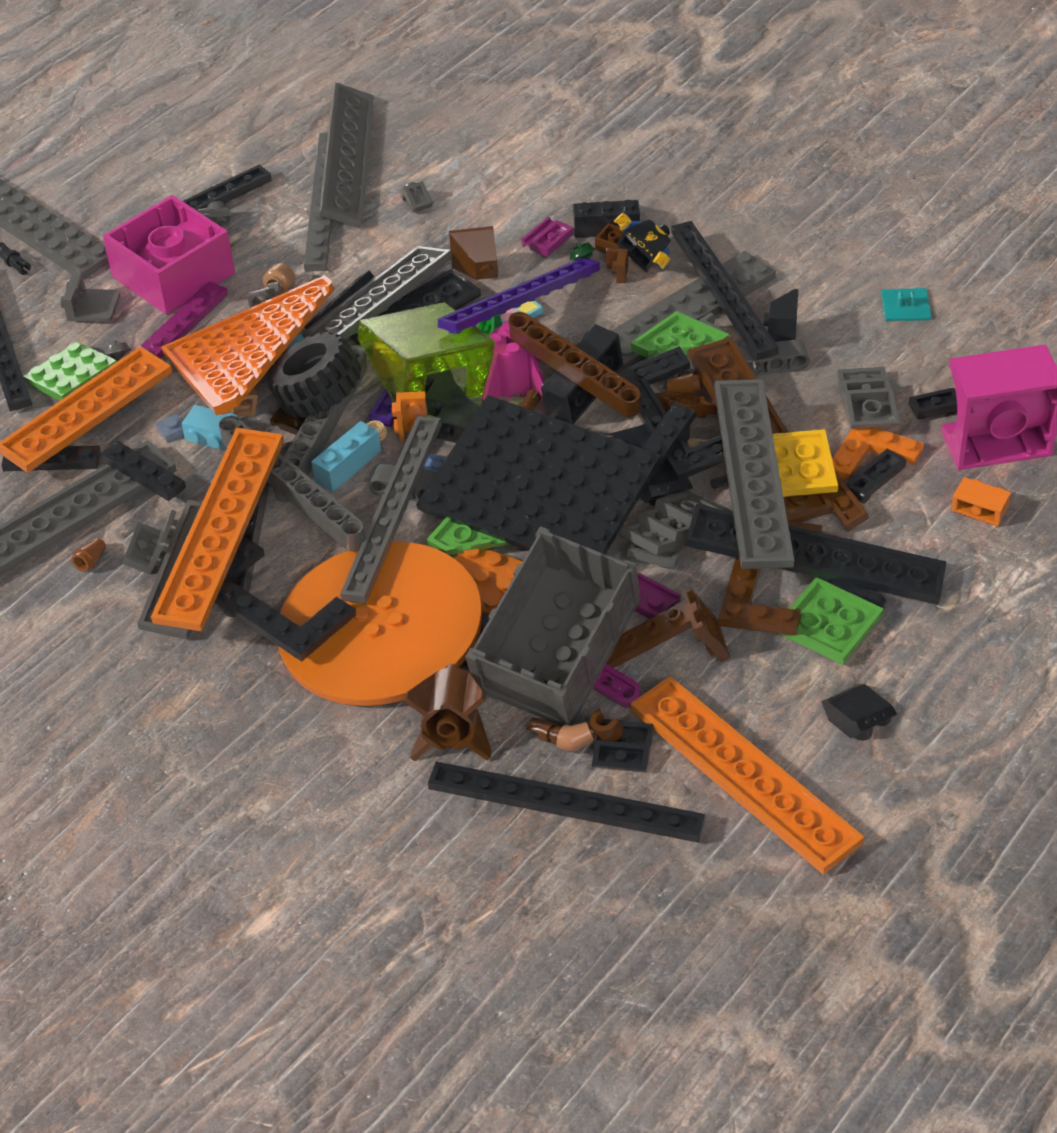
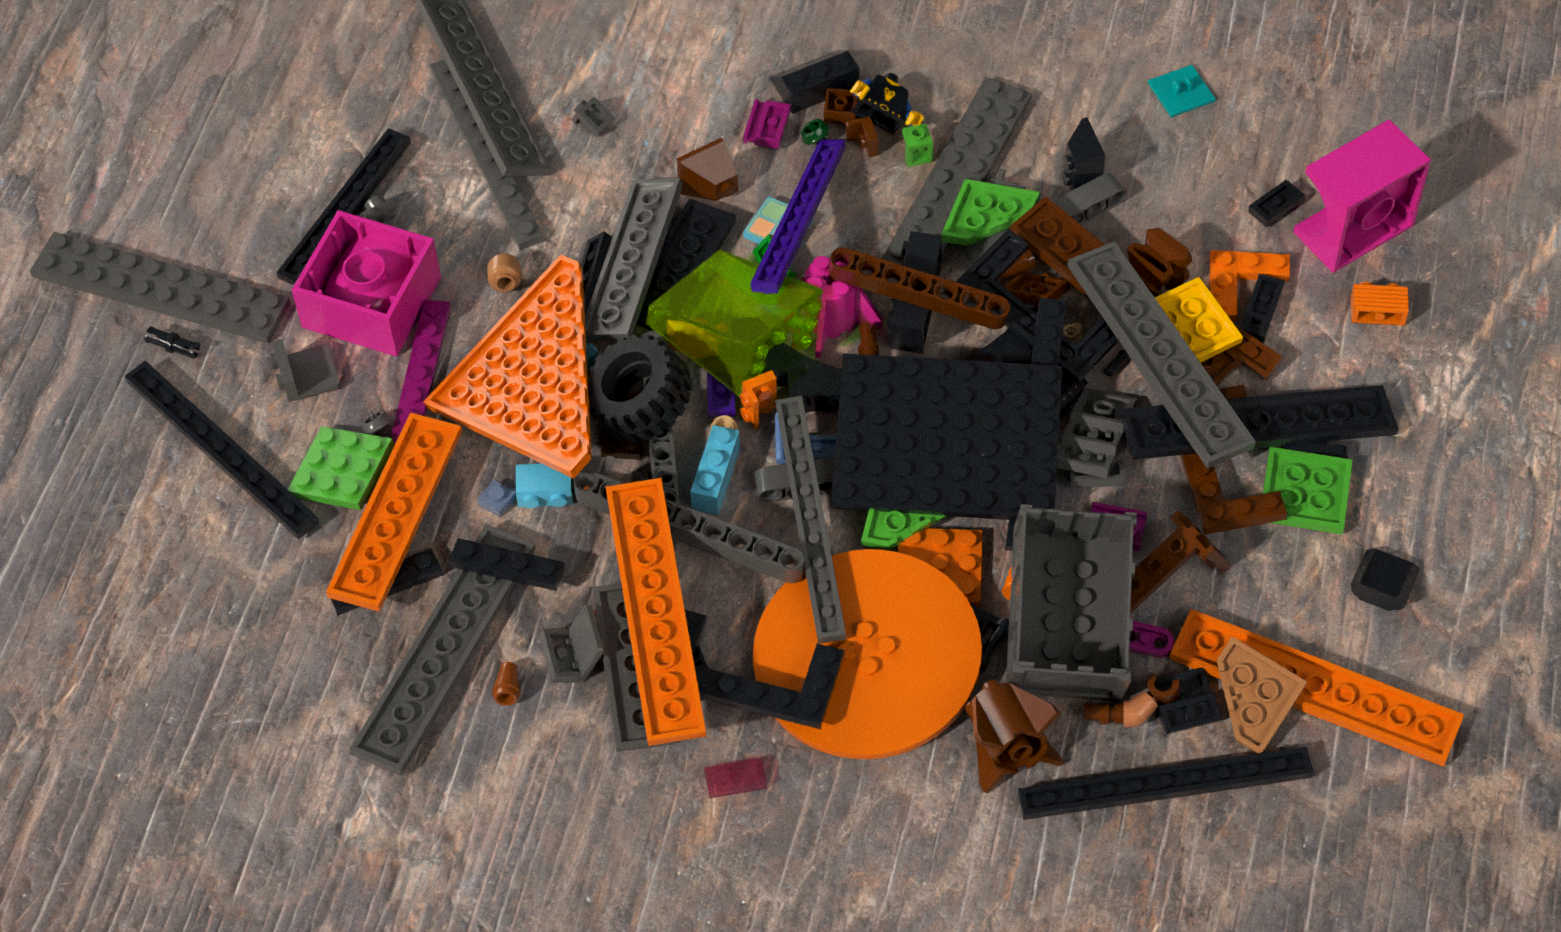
camera: 25 degrees left, 10 degrees up
(218, 679) = (735, 778): none -> clear pink plate
(267, 293) = (501, 301): dark grey plate -> none
(655, 281) = (918, 145): none -> bright green bracket
(683, 757) = (1256, 694): none -> medium nougat plate
(725, 291) = (1000, 136): black plate -> none
(800, 410) = (1160, 260): none -> reddish brown piece
(867, 397) = (1208, 219): dark grey slope -> none

